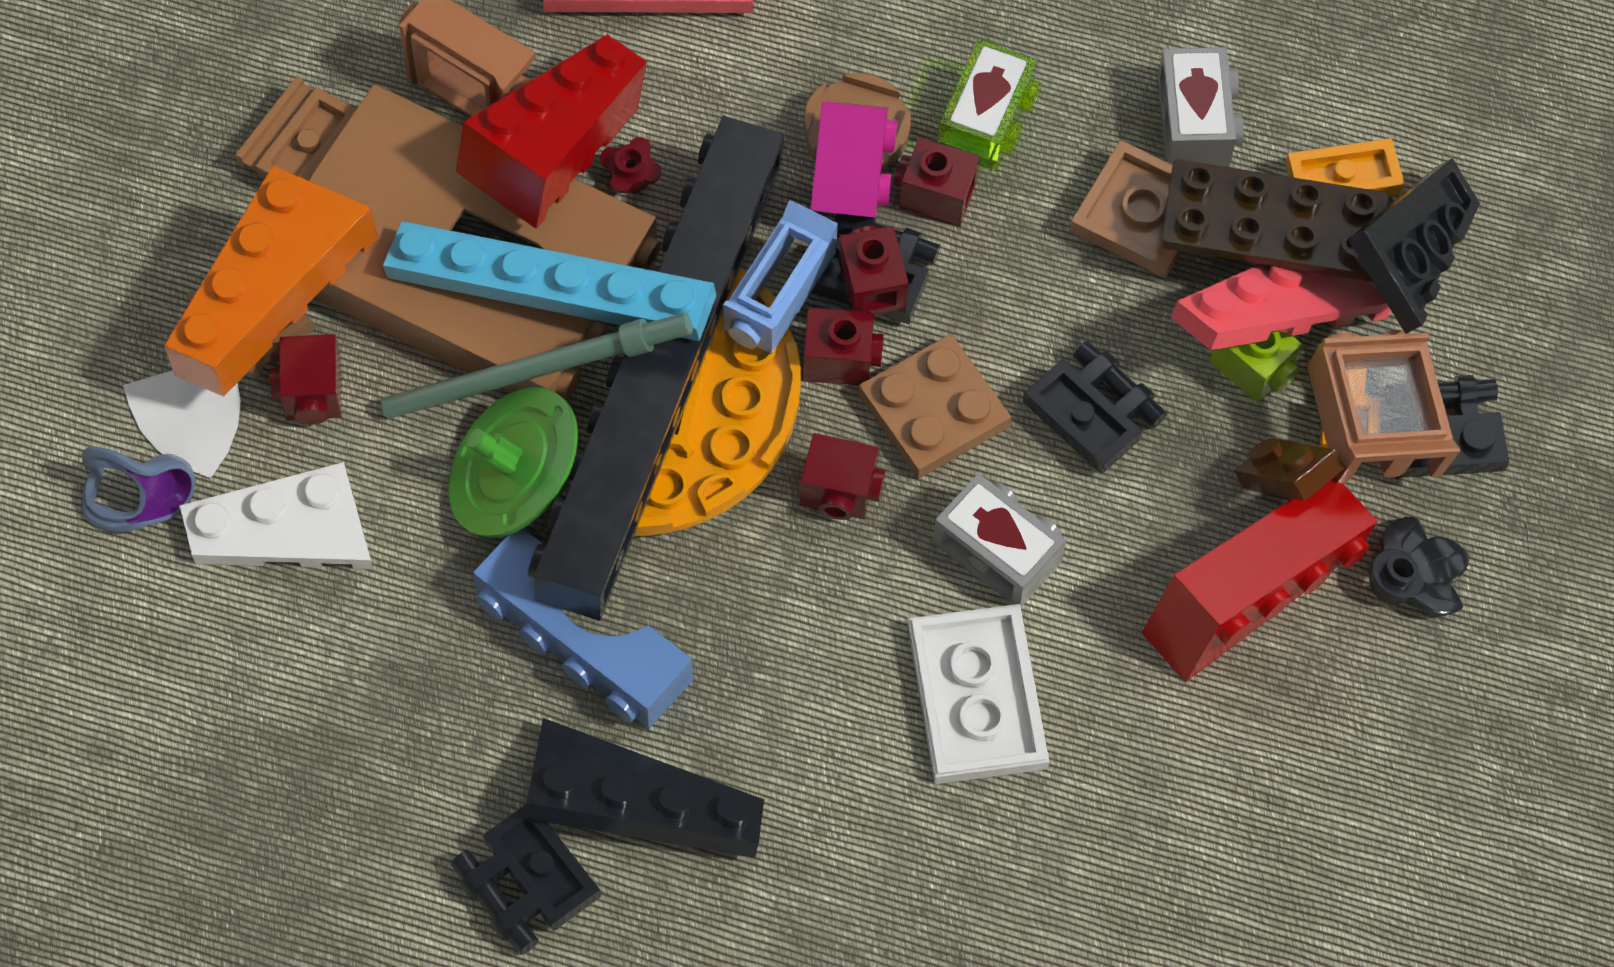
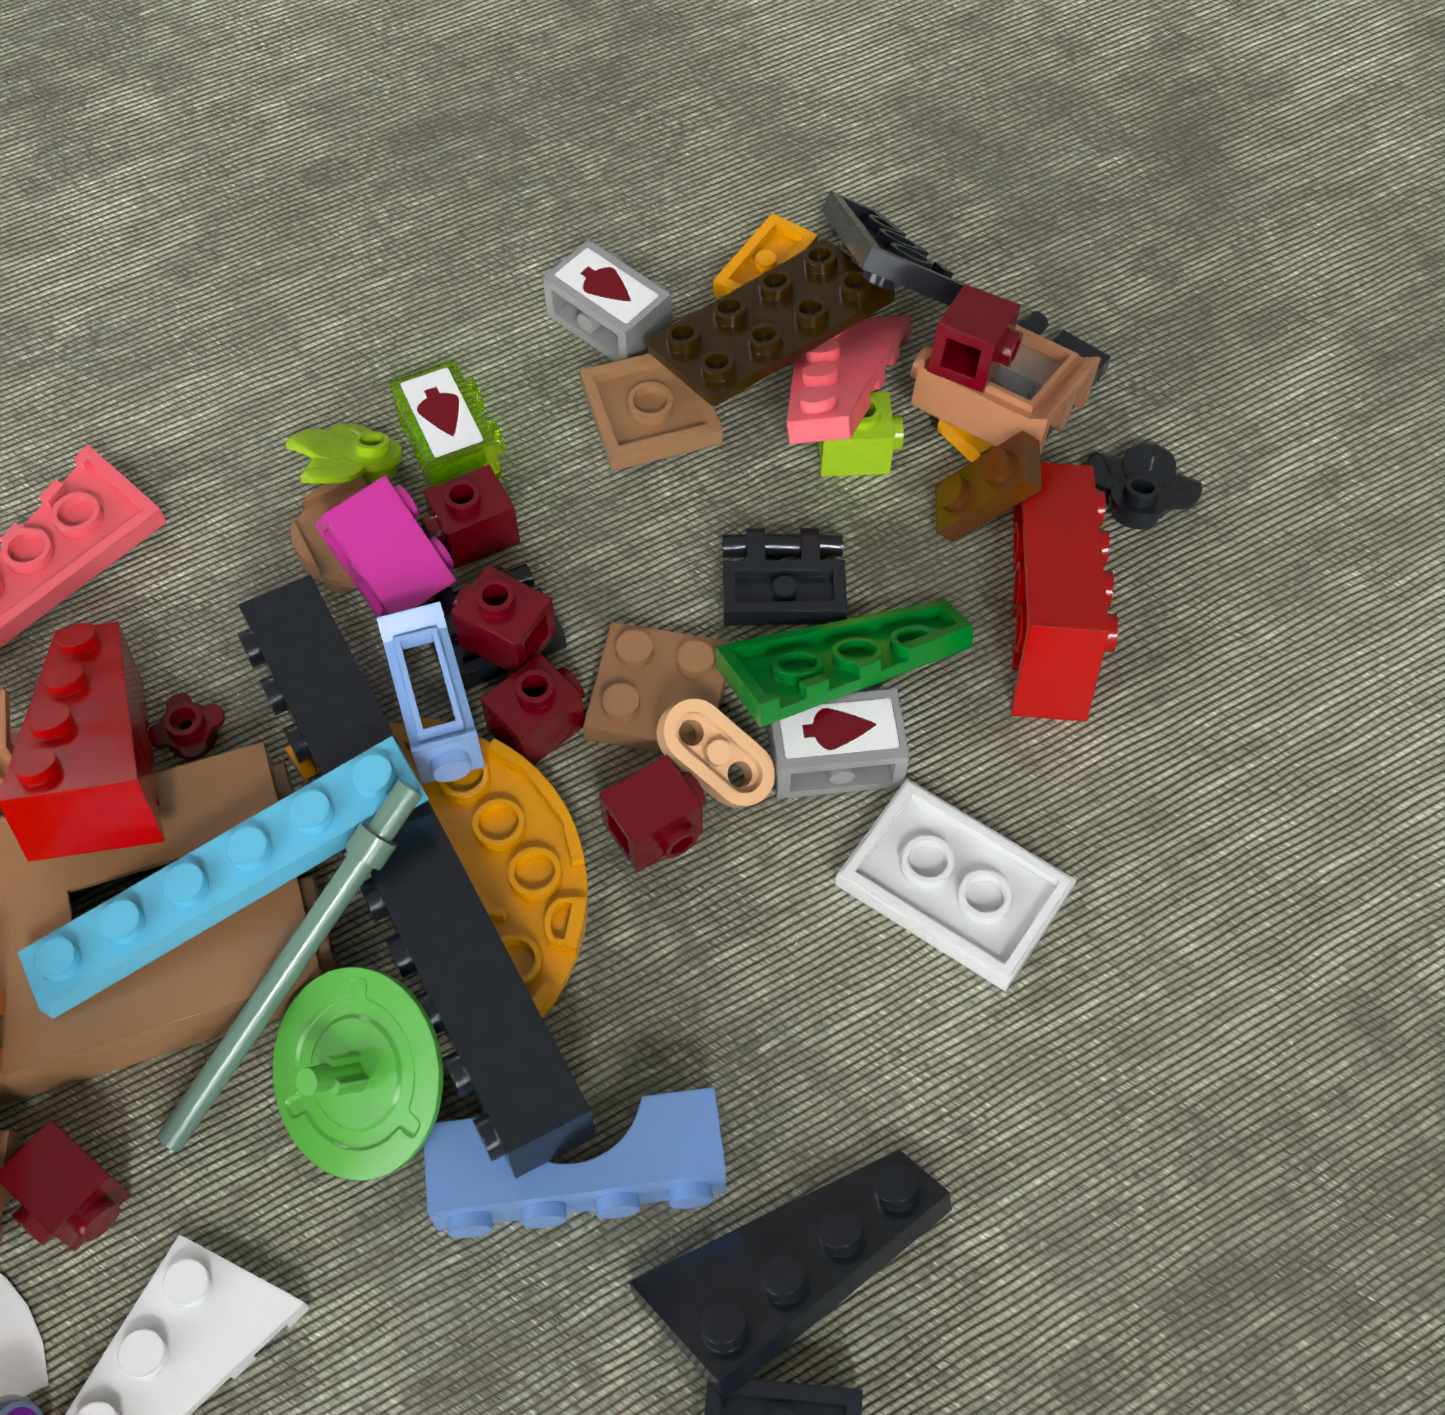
camera: 45 degrees left, 5 degrees down
(907, 64) = (346, 454): none -> lime plate
(913, 475) = (716, 748): none -> light nougat plate
(1046, 482) = (826, 661): none -> green wing
(1366, 356) = (975, 338): none -> dark red brick

